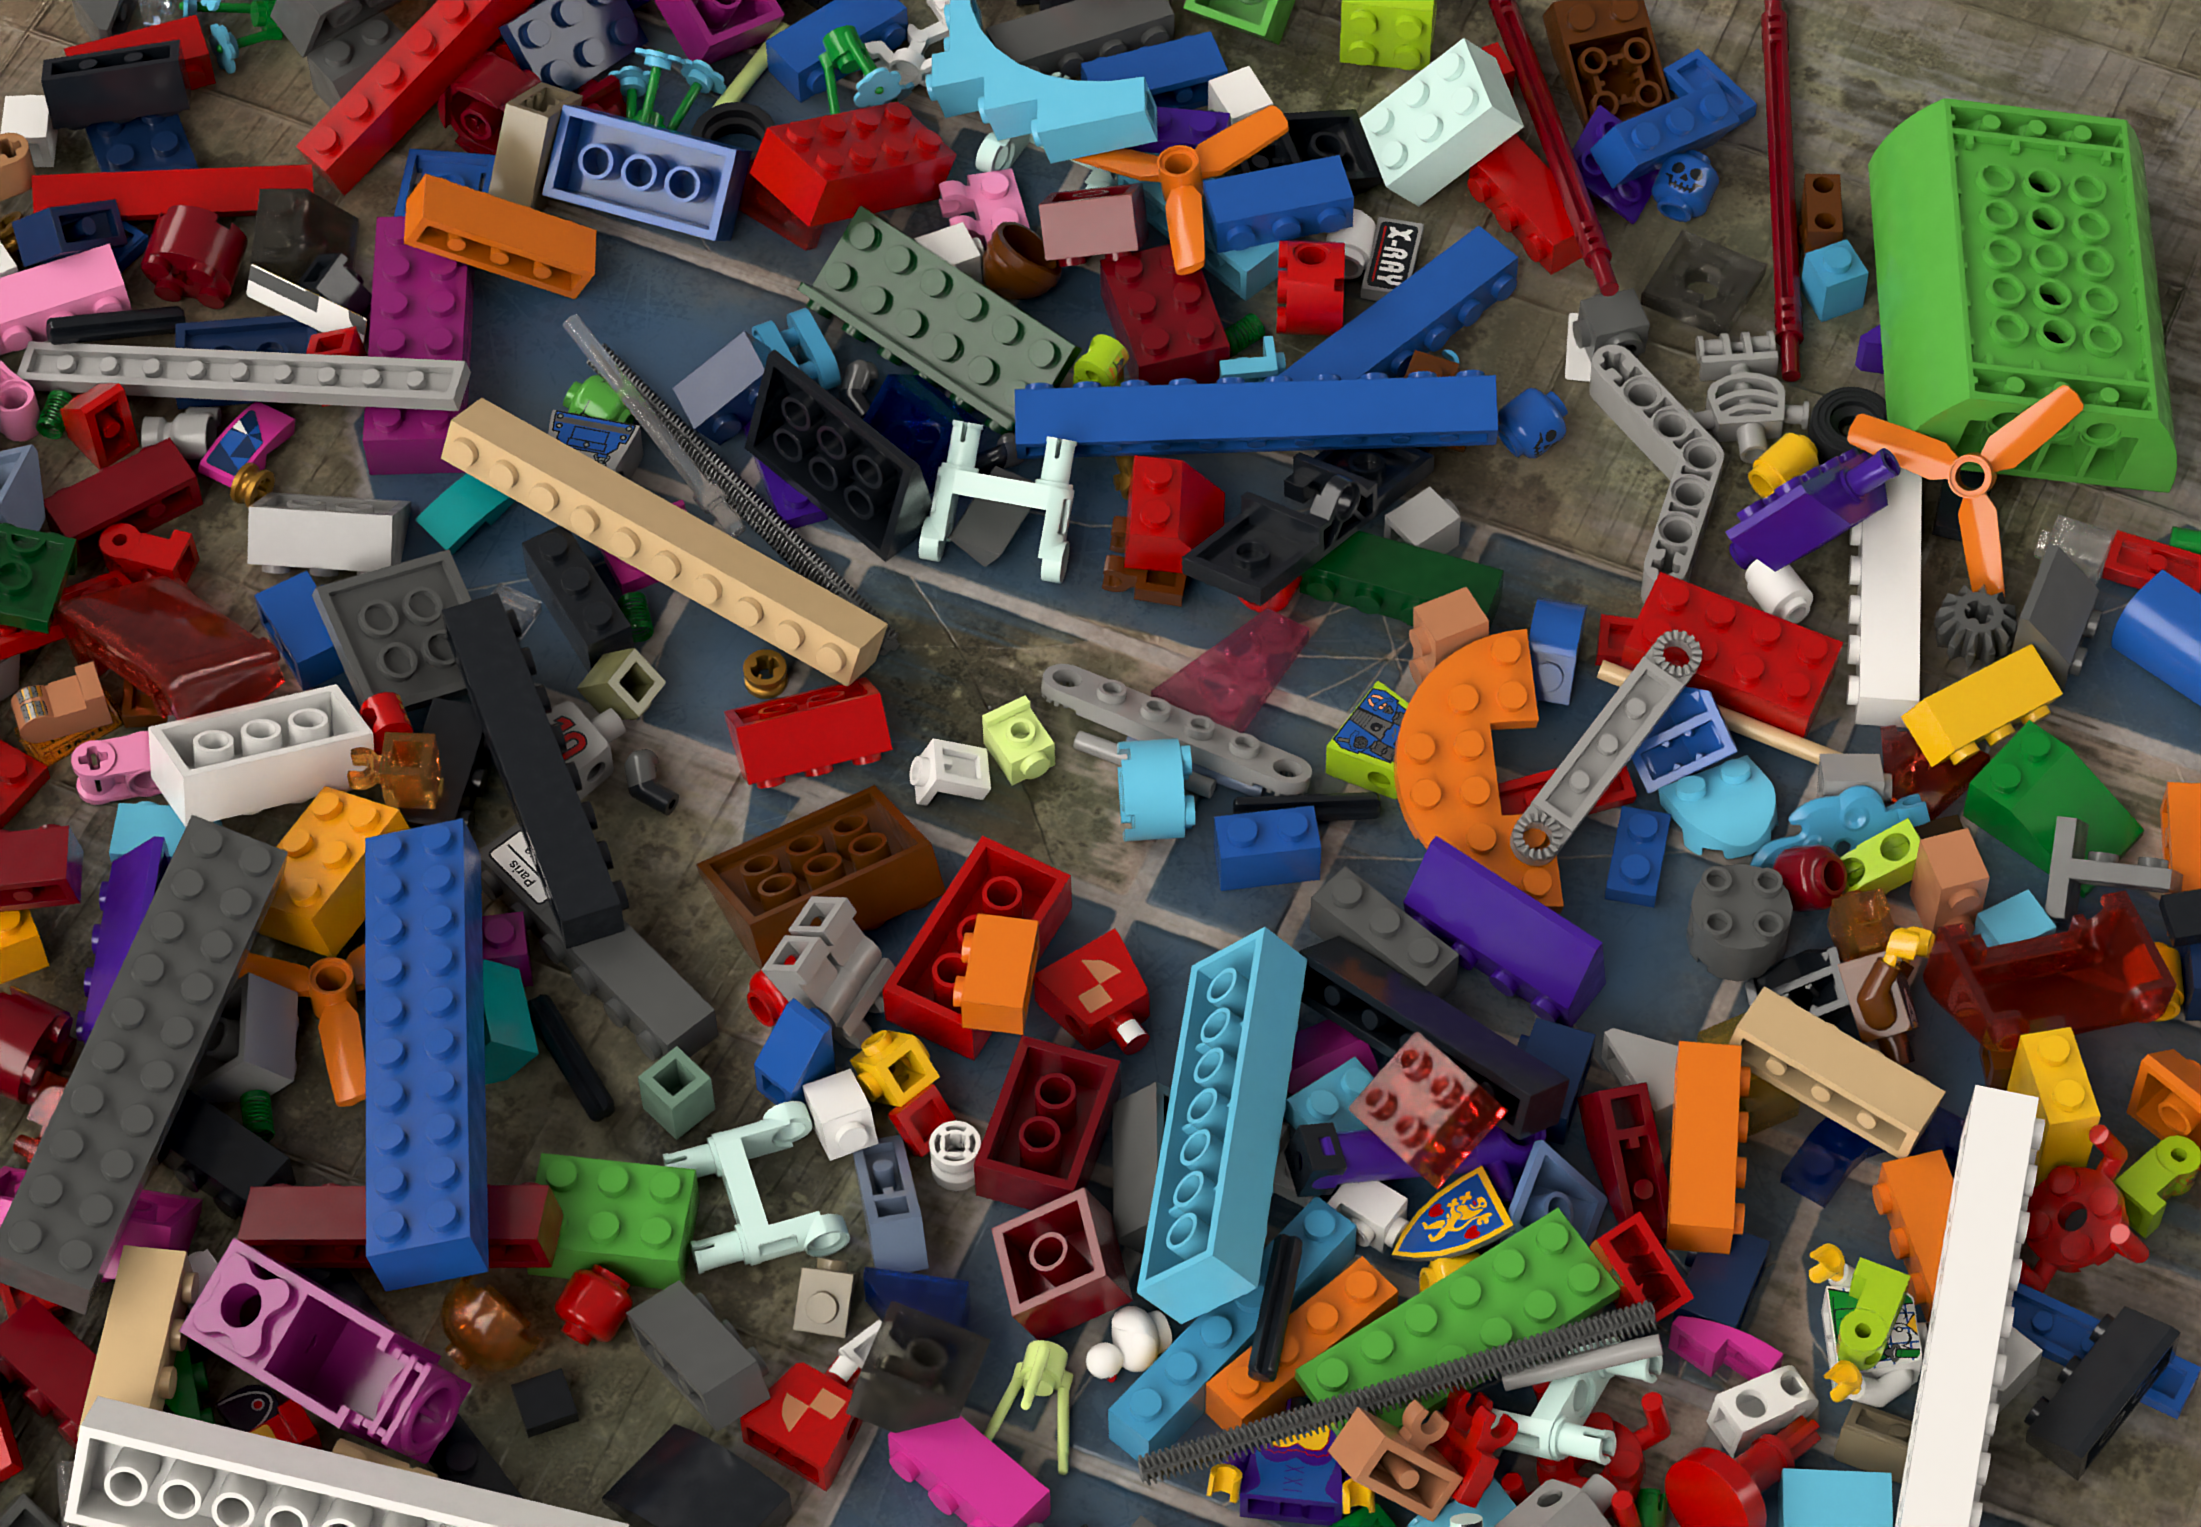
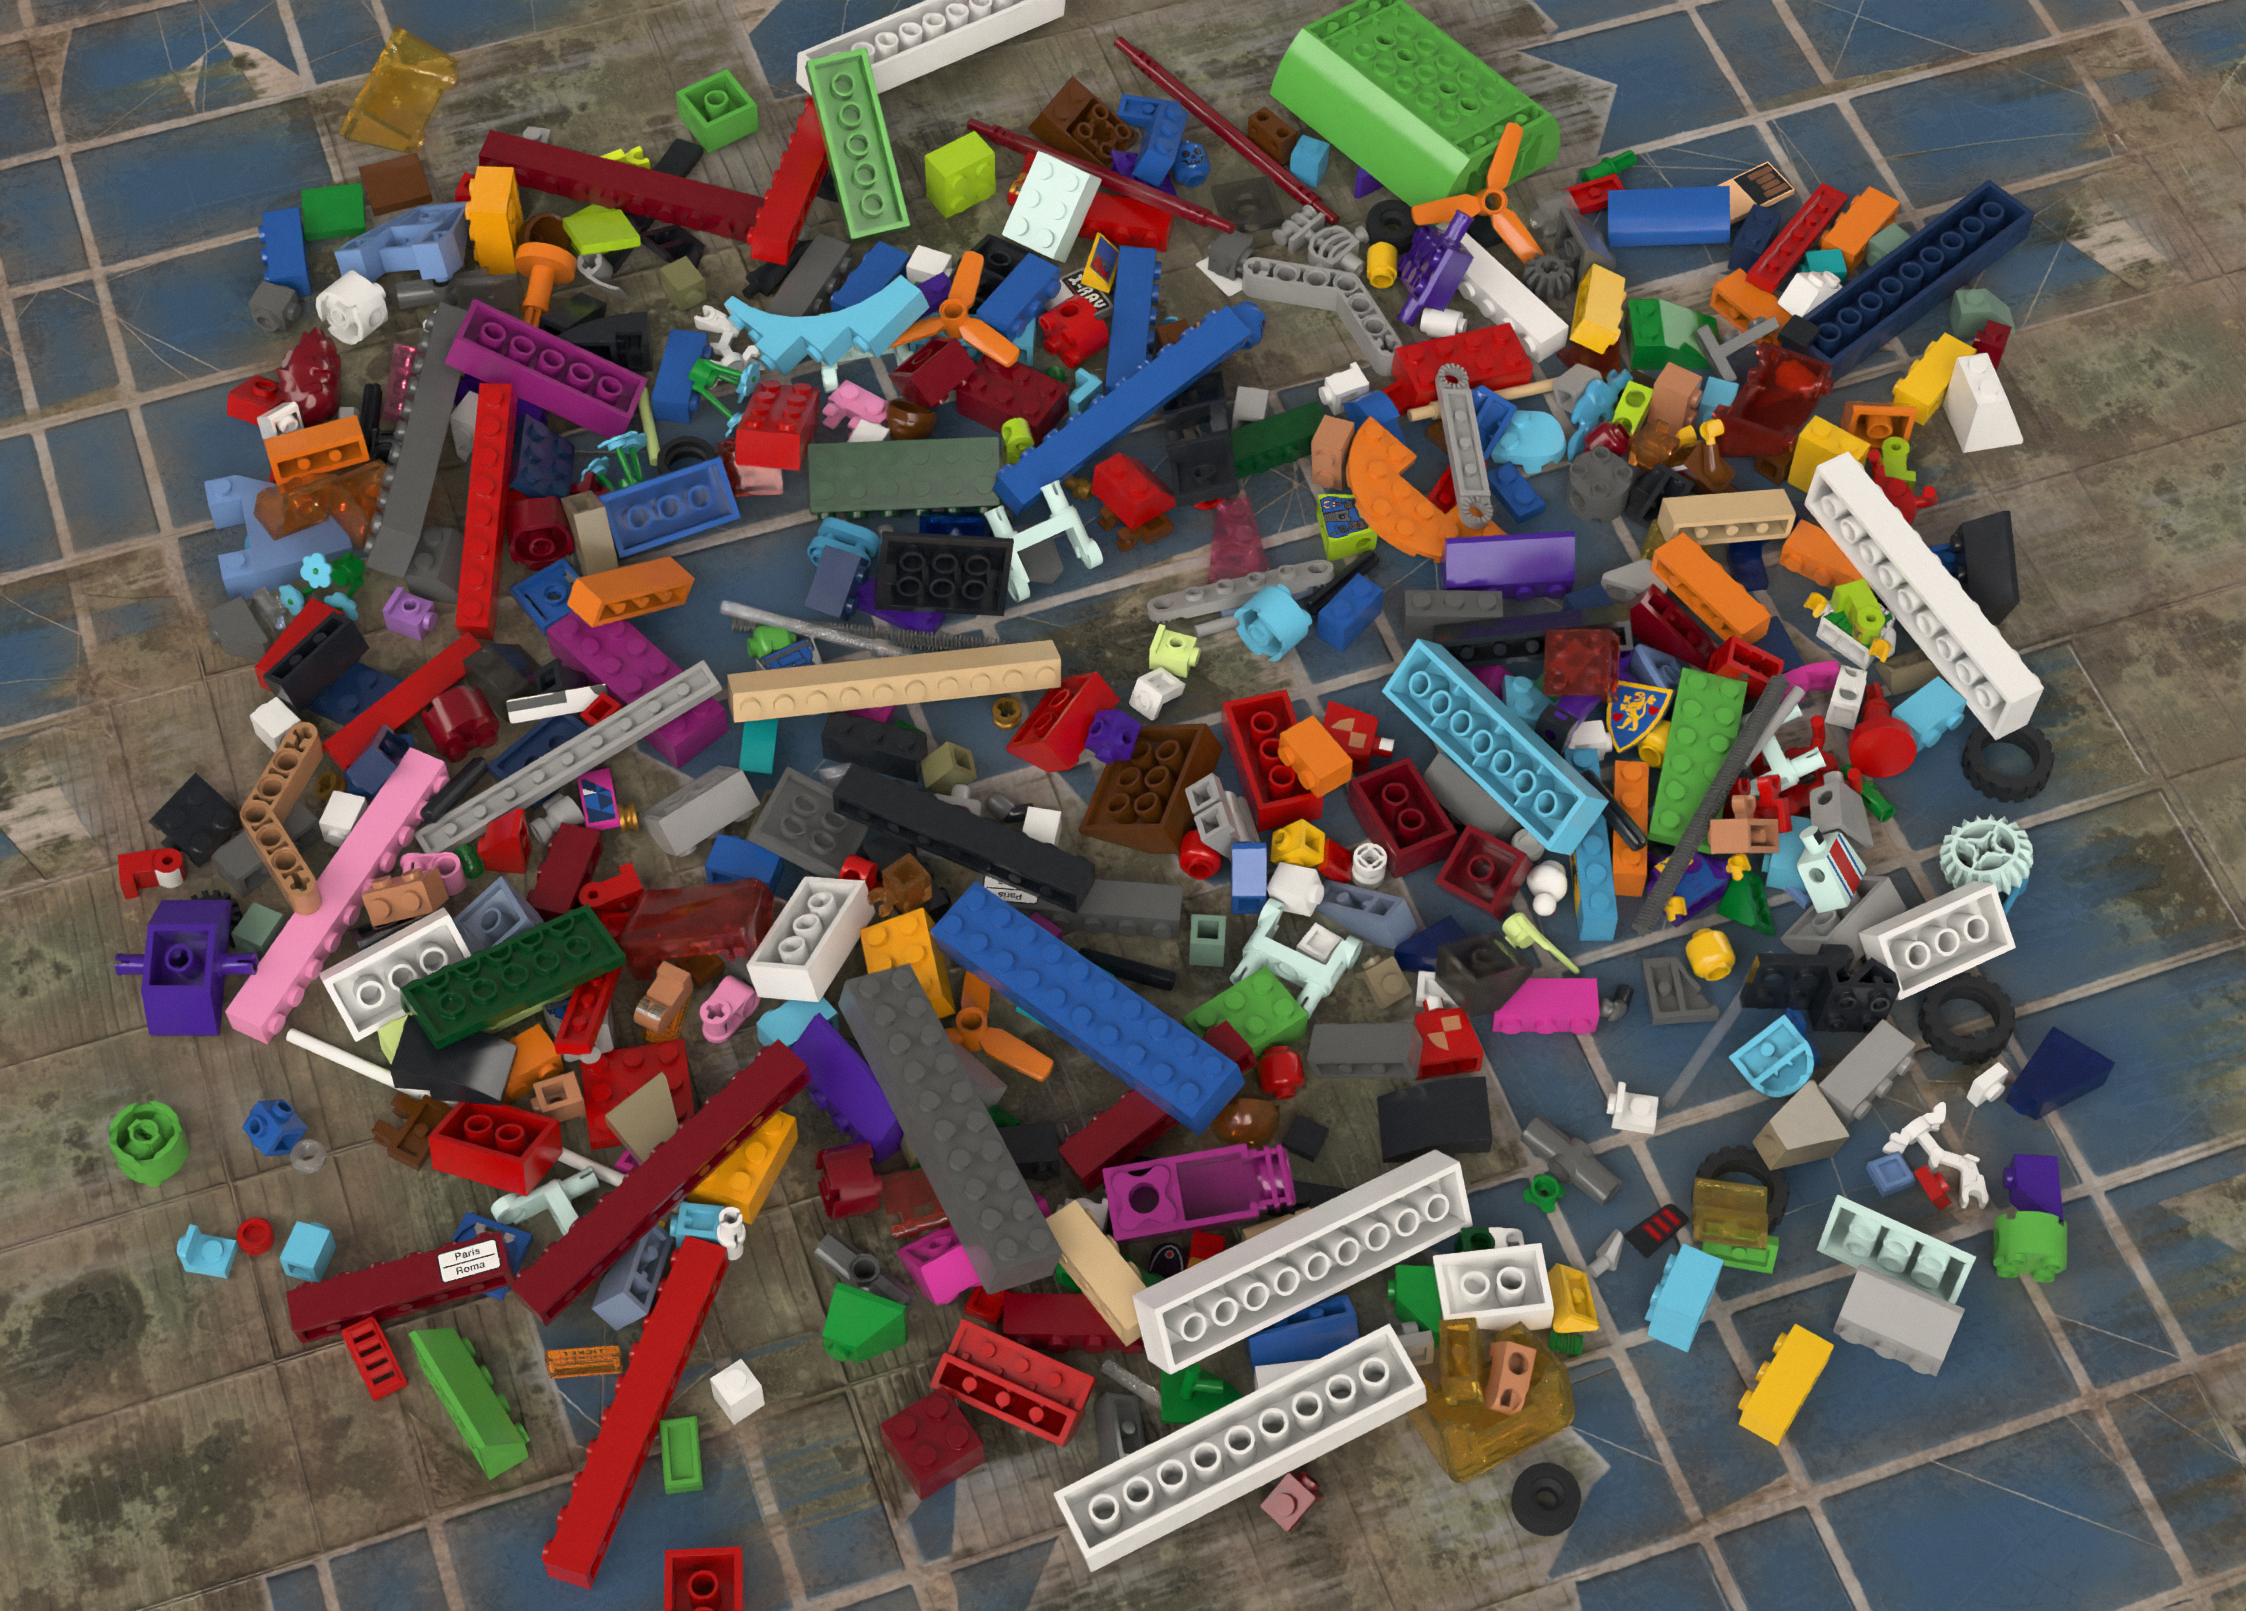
camera: 45 degrees left, 0 degrees up
(281, 104) = (409, 614): none -> medium lavender brick
(642, 835) = (1043, 825): none -> white brick
(807, 1195) = (1319, 944): none -> white tile
(826, 783) = (1112, 736): none -> dark purple brick
(1436, 229) = (1101, 265): none -> slope
(1565, 579) = (1343, 387): none -> white brick

